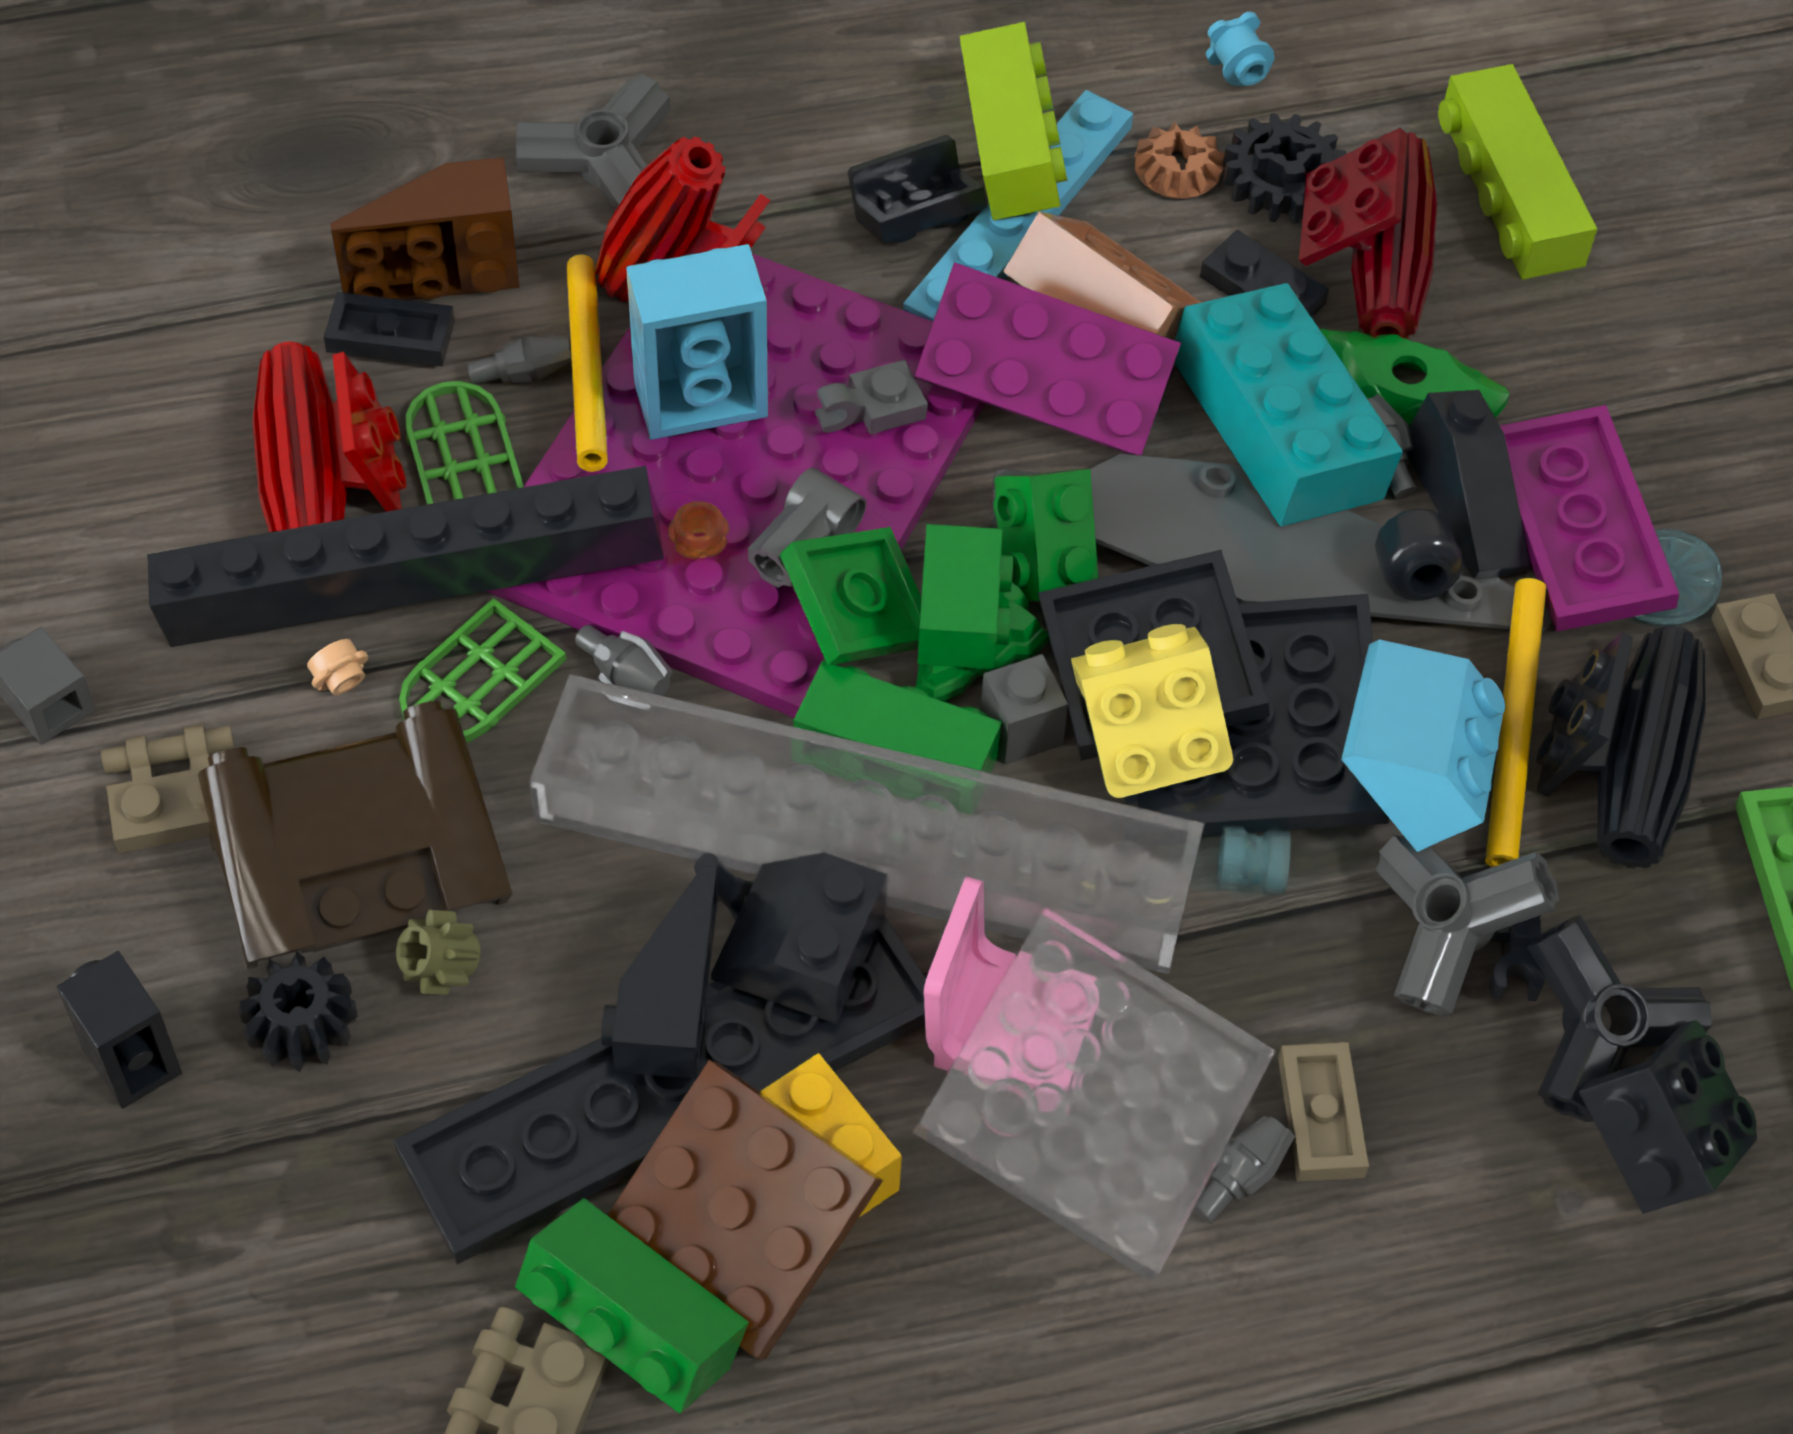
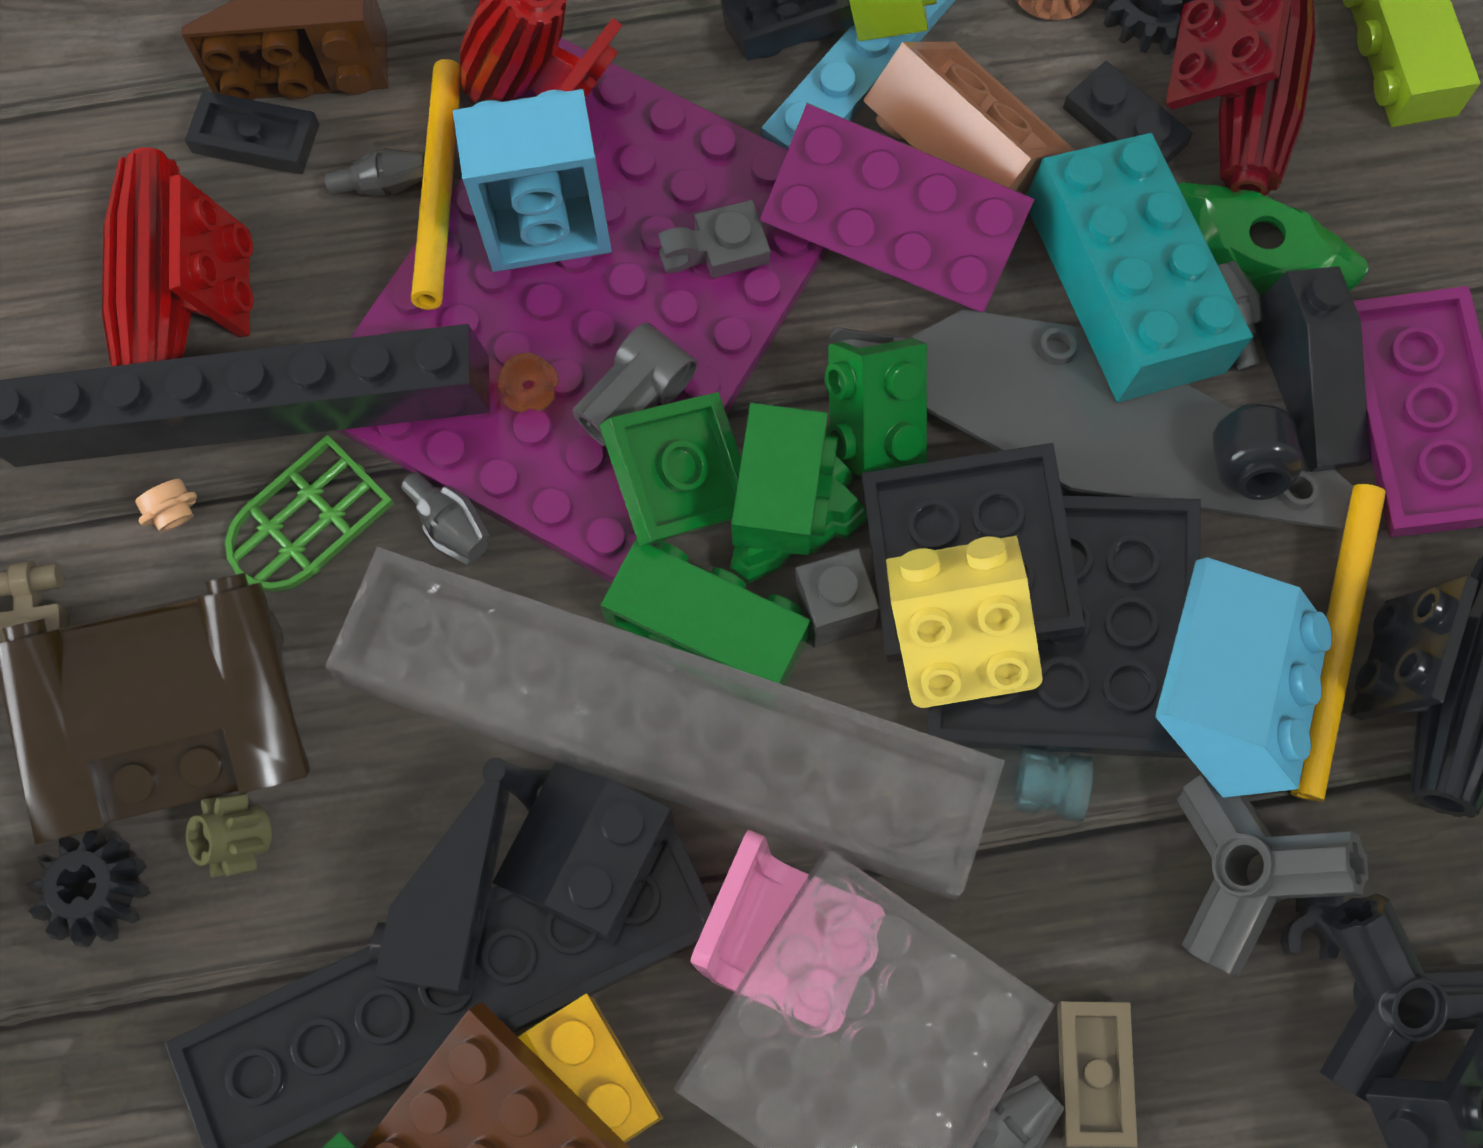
camera: 10 degrees right, 15 degrees up
(469, 426) = (301, 284): bright green window -> none

